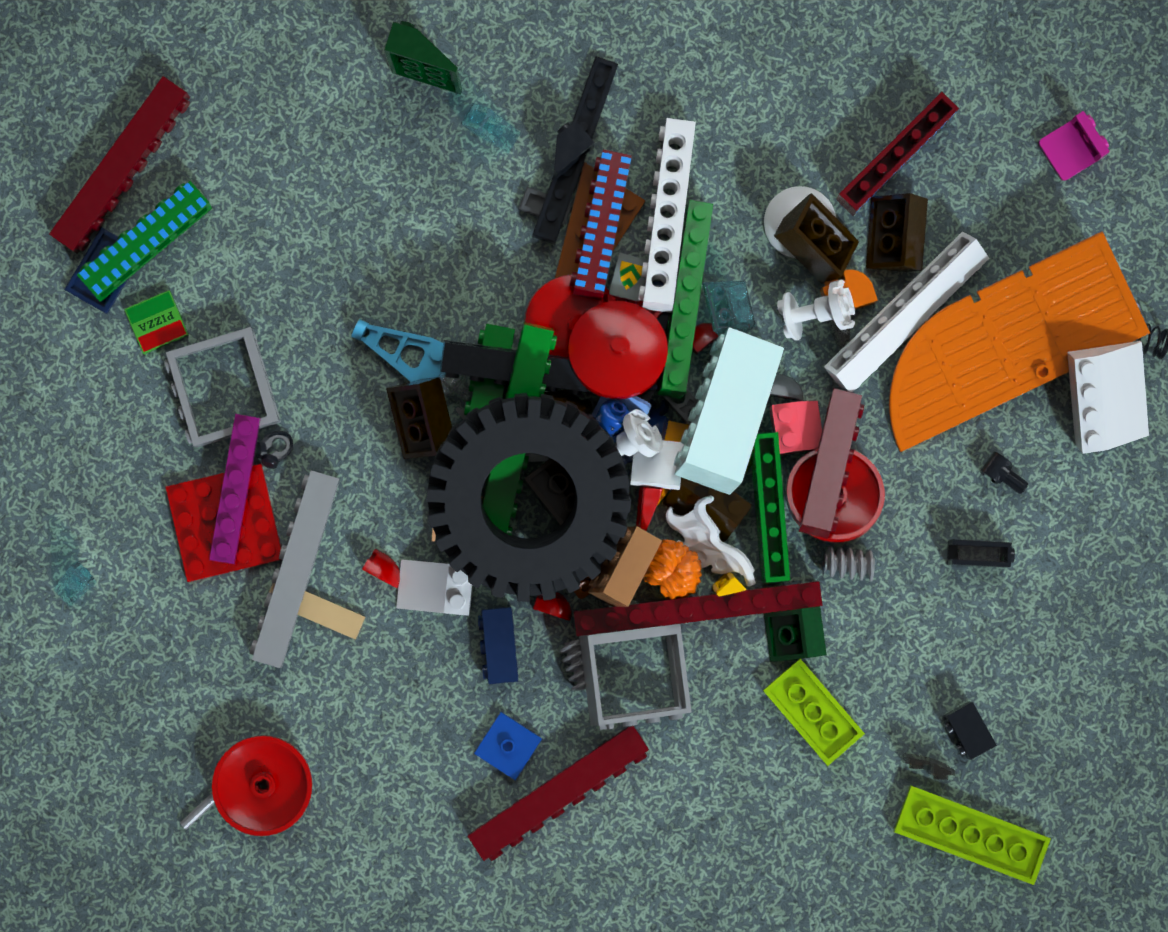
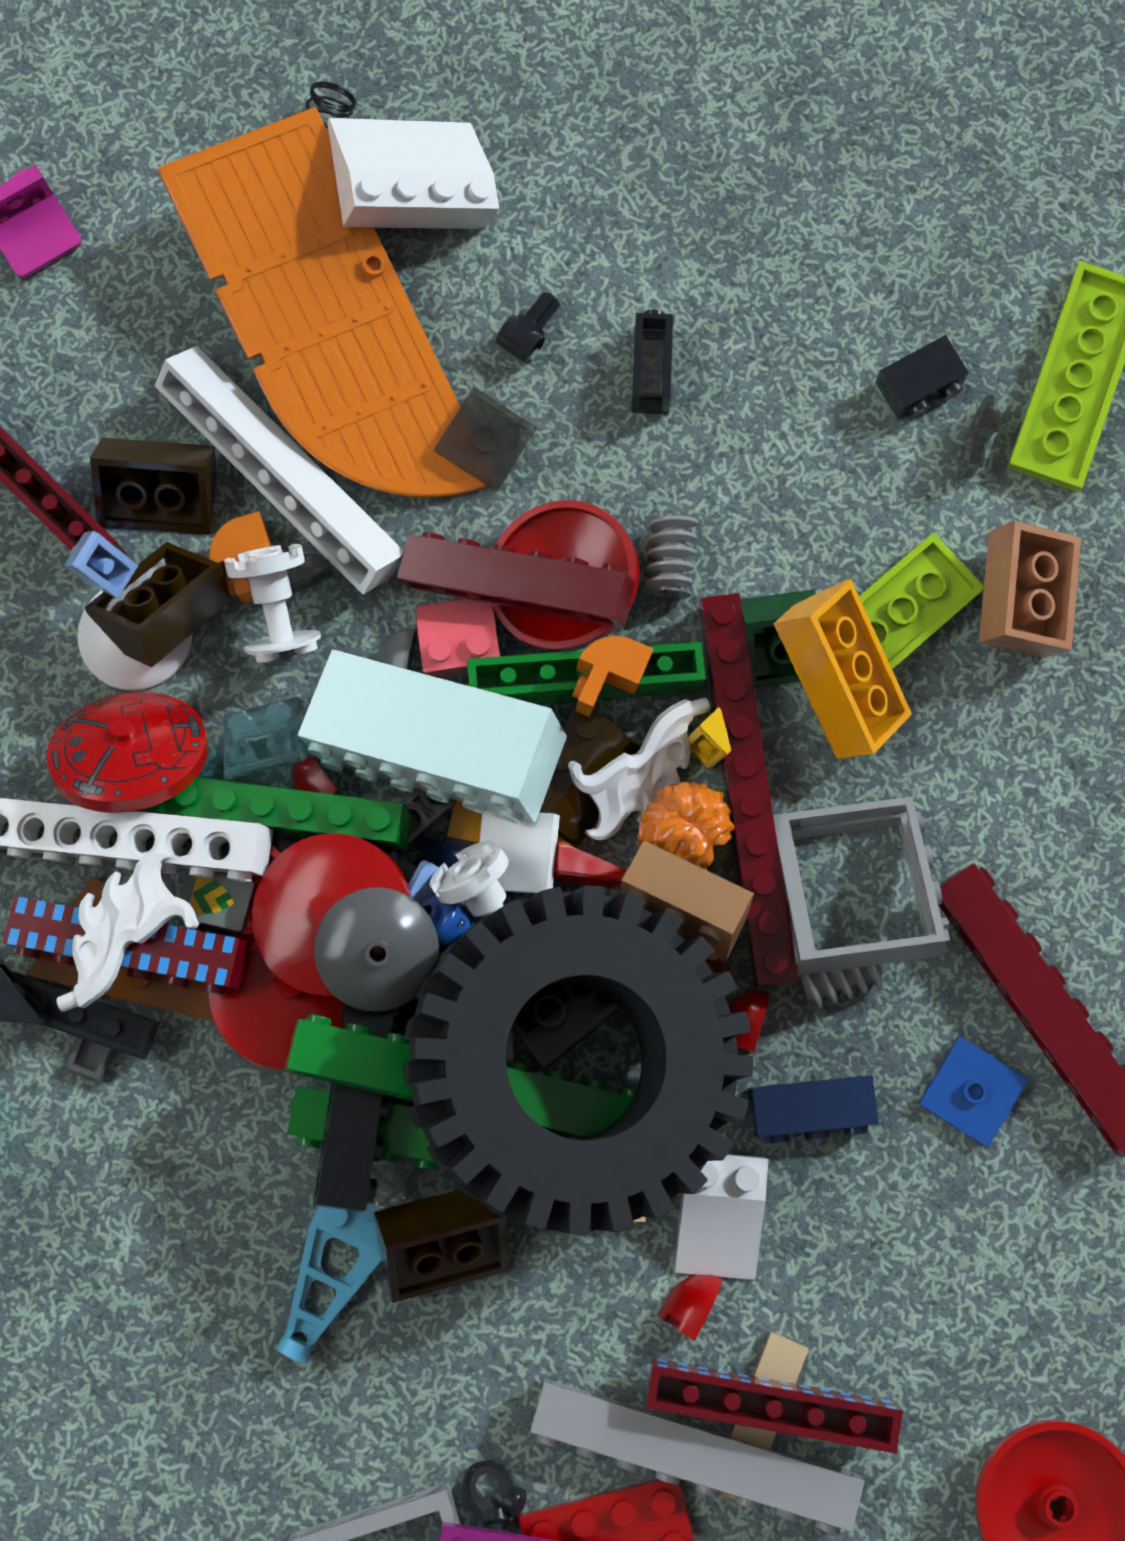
camera: 85 degrees left, 5 degrees down
(324, 614) = (774, 1405): none -> dark red brick
(612, 372) = (368, 920): none -> dark grey dish
(617, 222) = (122, 917): none -> white piece
(721, 221) = (127, 752): none -> red dish
(771, 670) = (843, 670): none -> light orange slope
(775, 521) = (609, 661): none -> orange brick
(824, 793) = (1030, 589): none -> nougat brick
(837, 202) = (100, 564): none -> light blue slope
(927, 444) = (485, 439): none -> clear smoke tile

